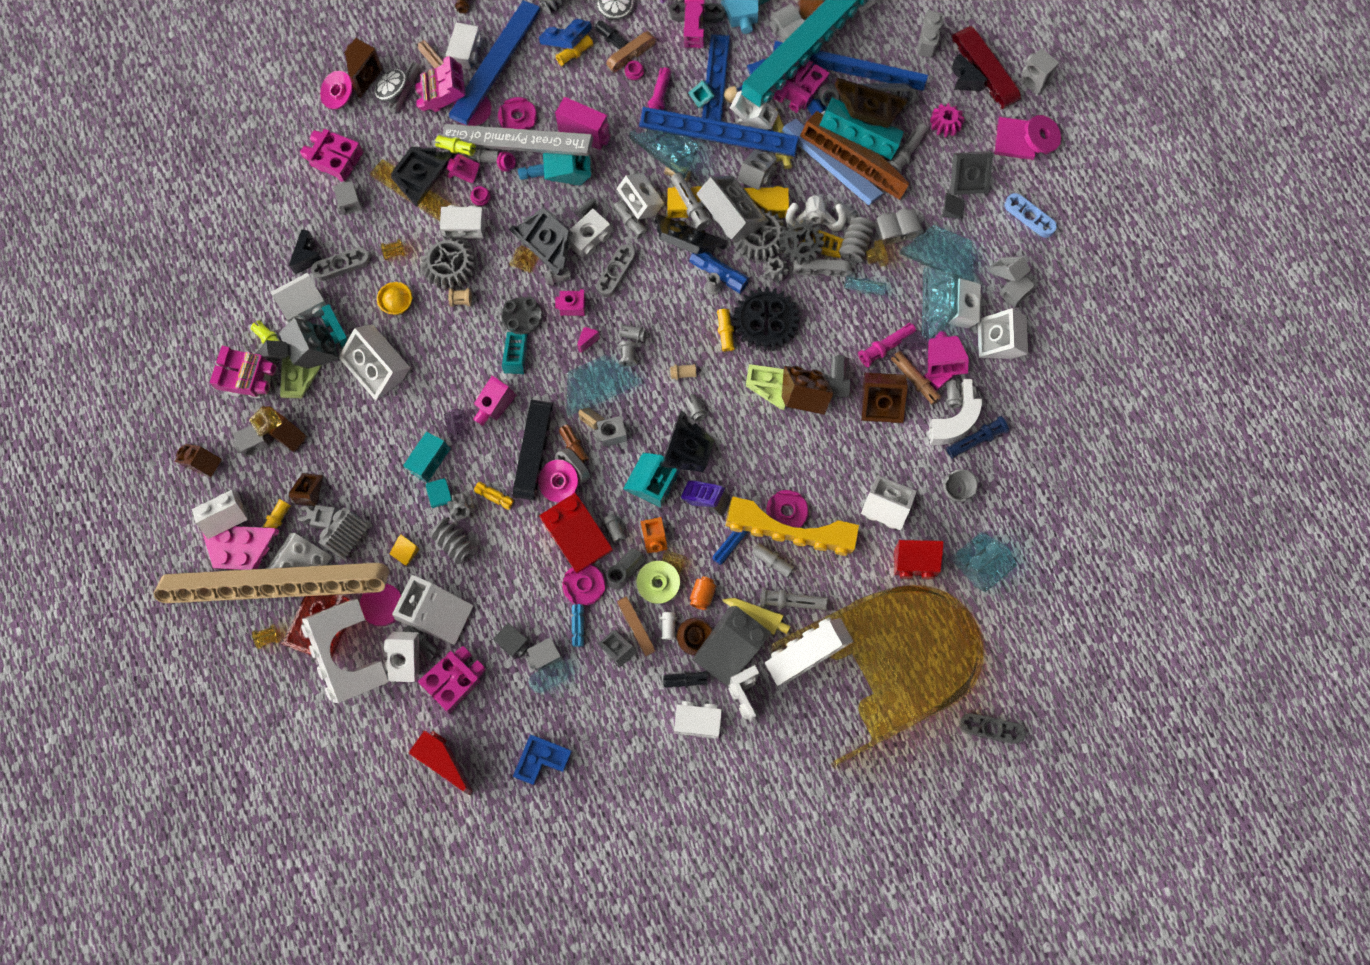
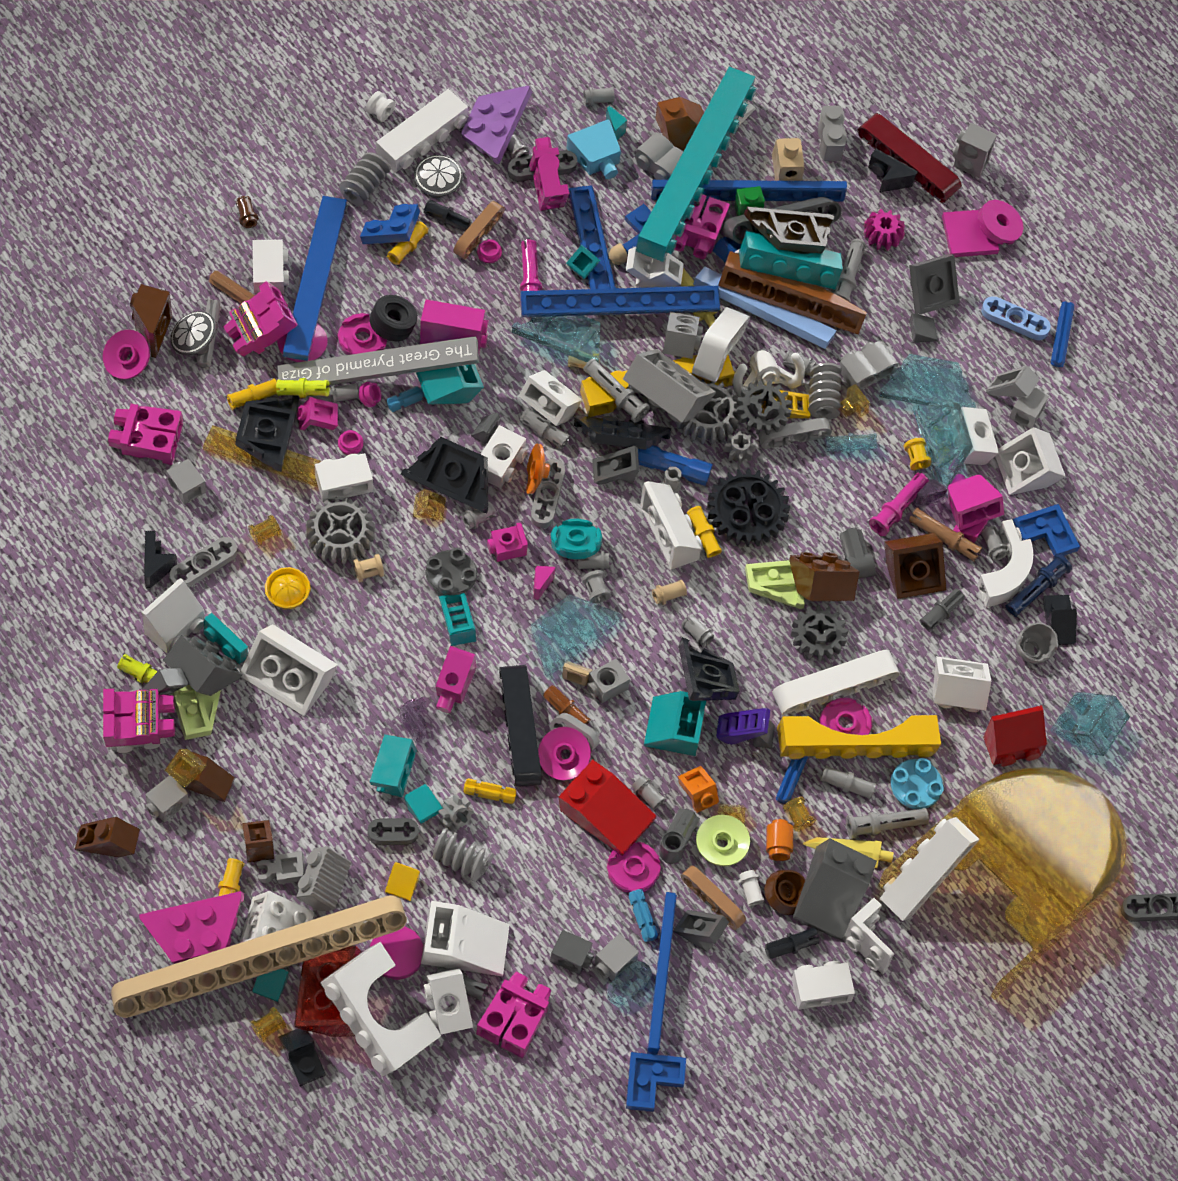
camera: 25 degrees left, 10 degrees down
(220, 514) = (164, 892): white slope -> none
(280, 605) = (271, 984): none -> teal slope
(284, 667) = (302, 1056): none -> black slope
(408, 513) = (393, 837): none -> dark grey beam
(418, 141) = (252, 393): none -> yellow pin
(437, 756) = (536, 1107): red slope -> none
(544, 96) = (389, 328): none -> black tyre
(574, 678) = (661, 973): none -> blue tile
(612, 250) = (536, 468): none -> orange dish
(624, 312) = (576, 539): none -> teal tile
(672, 262) = (616, 466): none -> dark grey slope
(700, 318) = (670, 524): none -> white slope
(725, 576) = (799, 814): none -> clear yellow bush
(776, 429) = (809, 637): none -> dark grey gear
(783, 180) = (719, 342): none -> white beam
(788, 476) = (835, 681): none -> white beam
(827, 575) = (917, 783): none -> medium azure dish
(847, 71) = (748, 198): none -> green brick
(887, 46) = (788, 156): none -> tan torso
(893, 439) = (942, 610): none -> dark grey axle
(914, 307) = (917, 454): none -> yellow bush
(987, 469) = (1061, 618): none -> black slope
(1002, 389) = (1049, 524): none -> blue plate
(1064, 236) = (1062, 334): none -> blue axle

